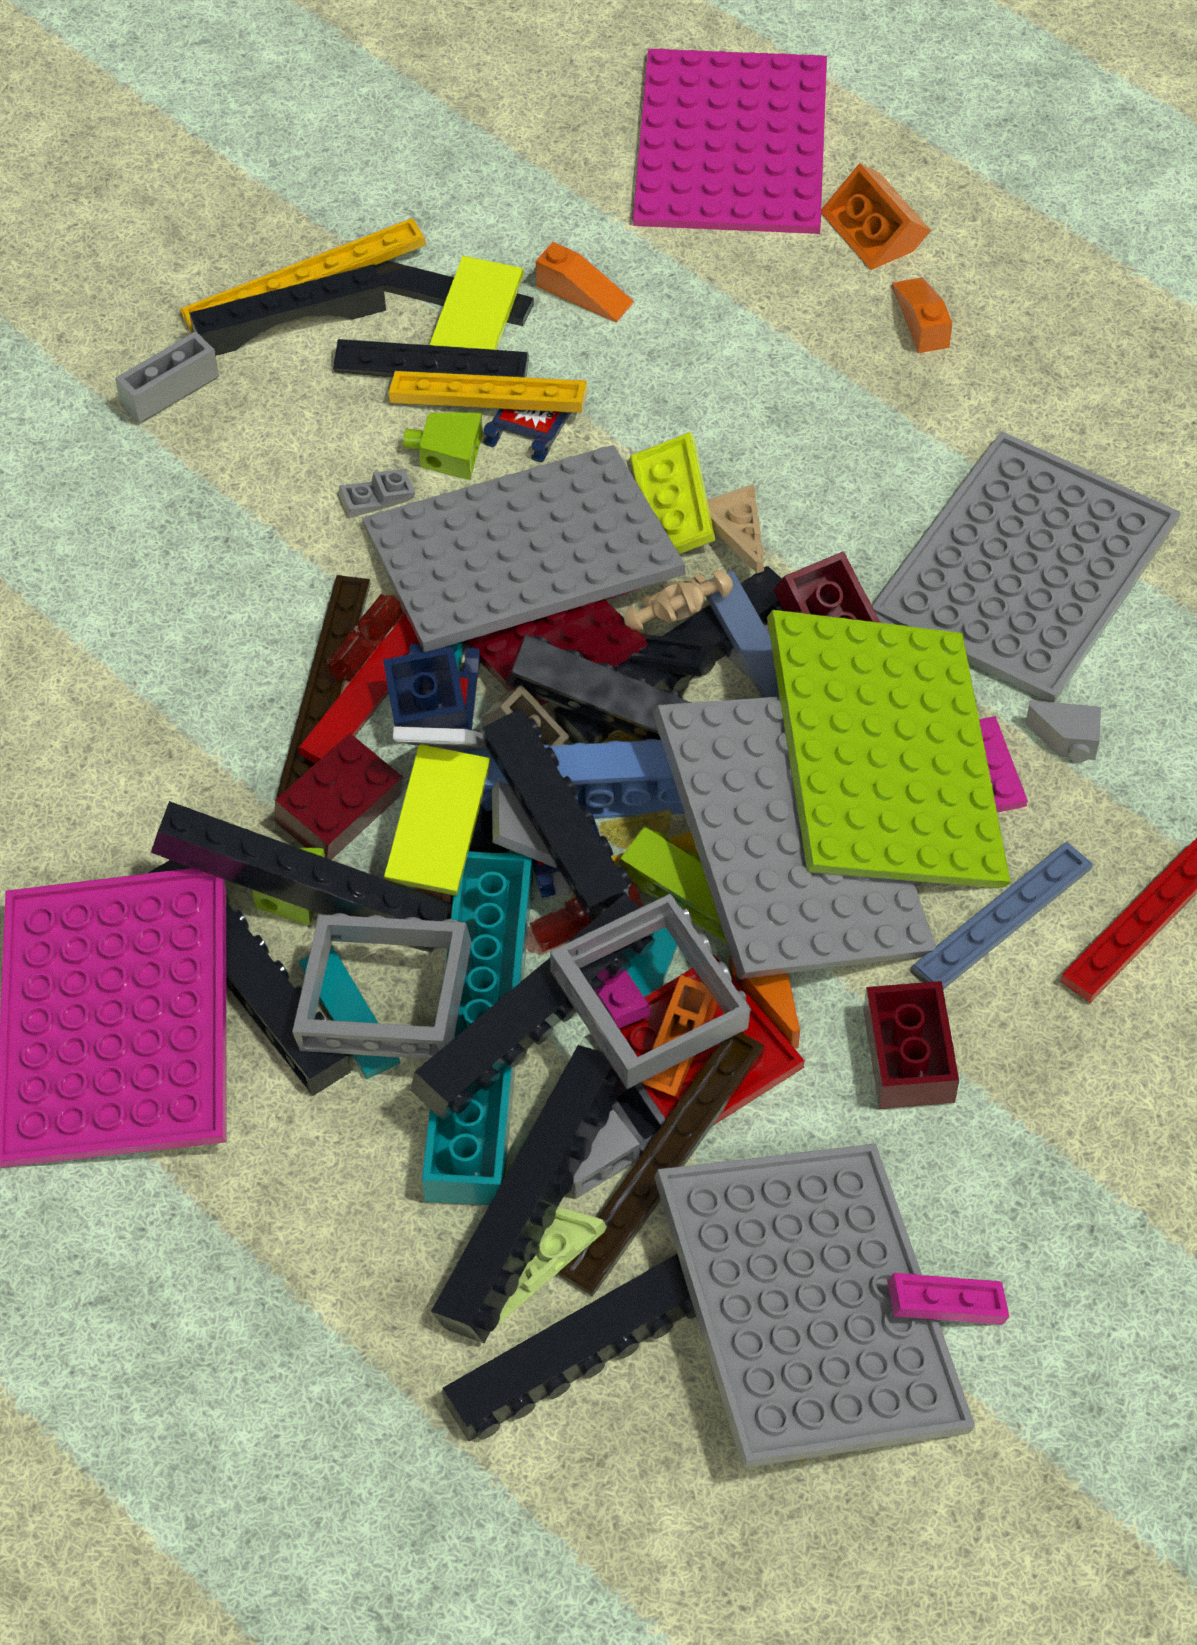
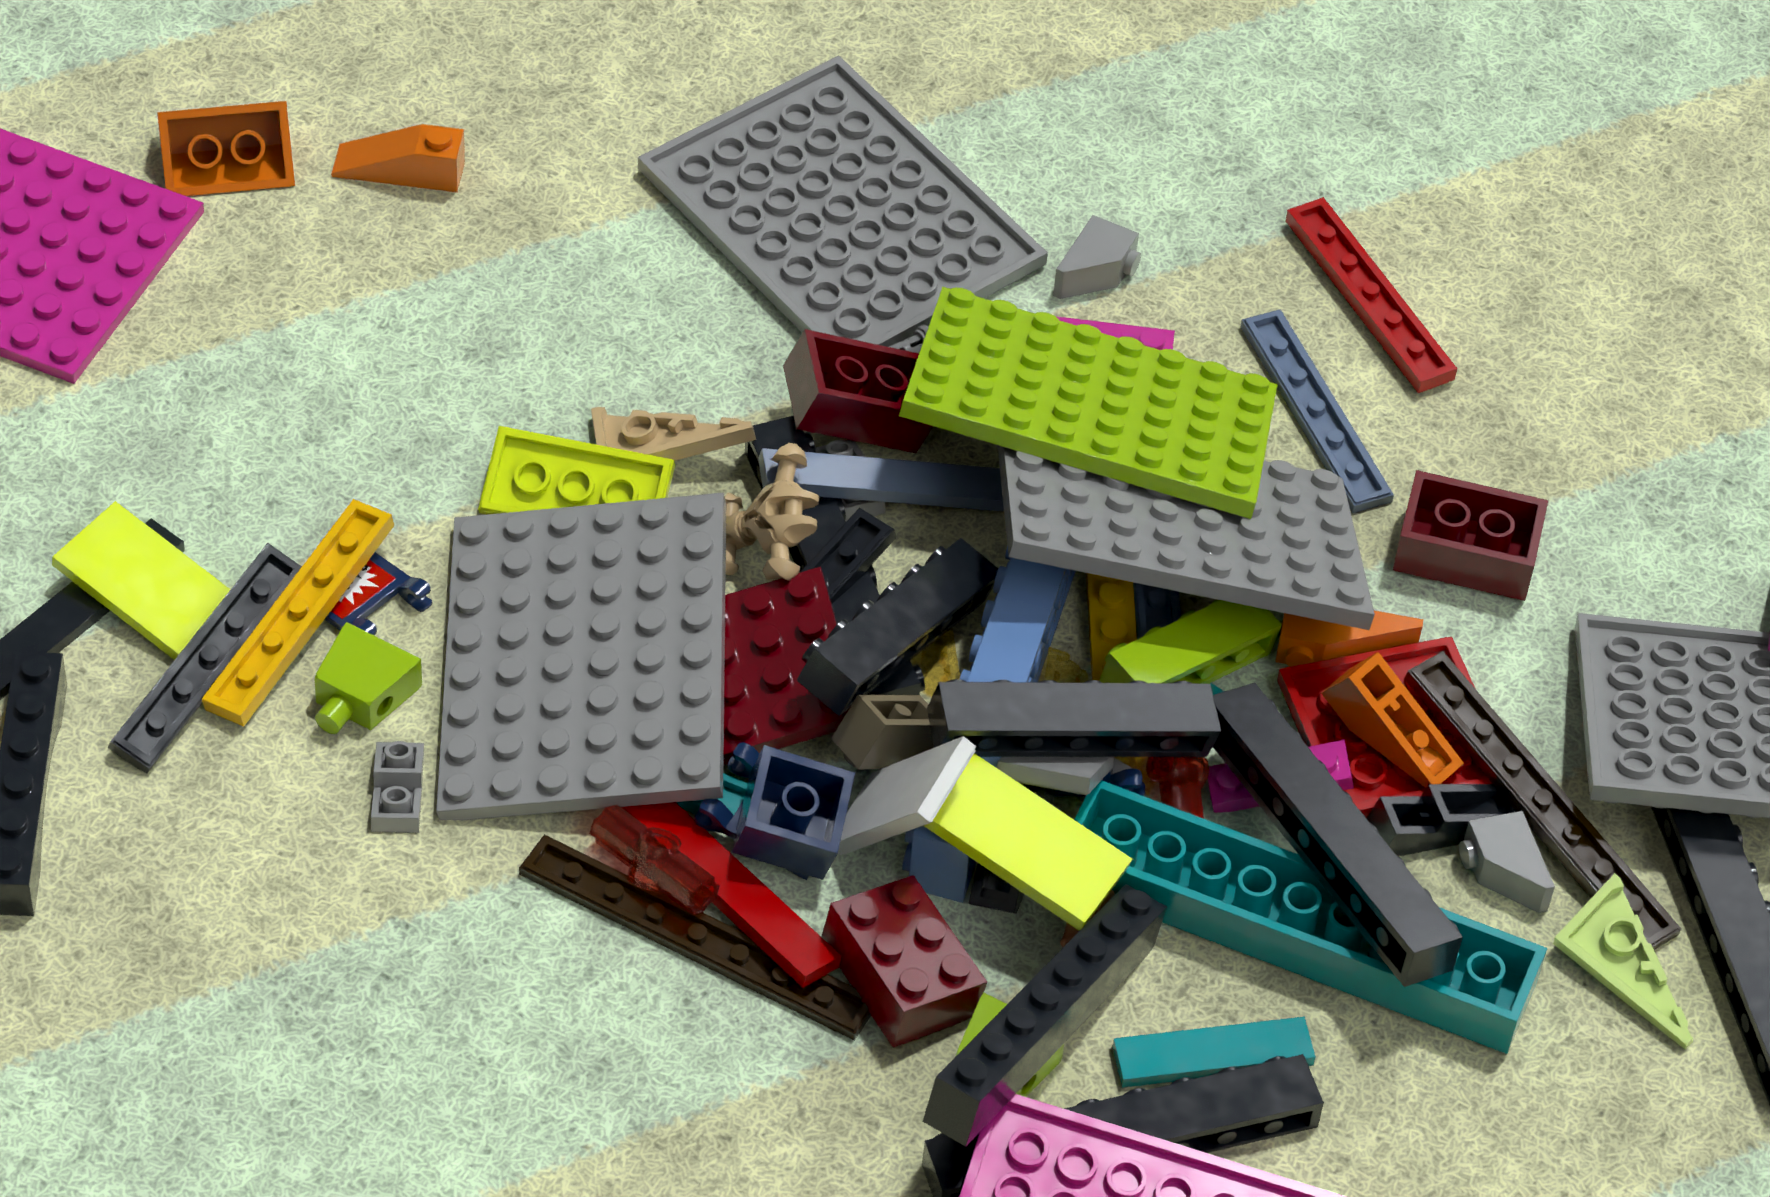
camera: 75 degrees left, 5 degrees down
(167, 377) = (73, 950): light grey brick -> none
(377, 1038) = (1209, 1047): light grey window -> none
(529, 1196) = (1577, 939): black brick -> none
(578, 281) = (156, 461): orange slope -> none
(621, 932) = (1389, 760): light grey window -> none

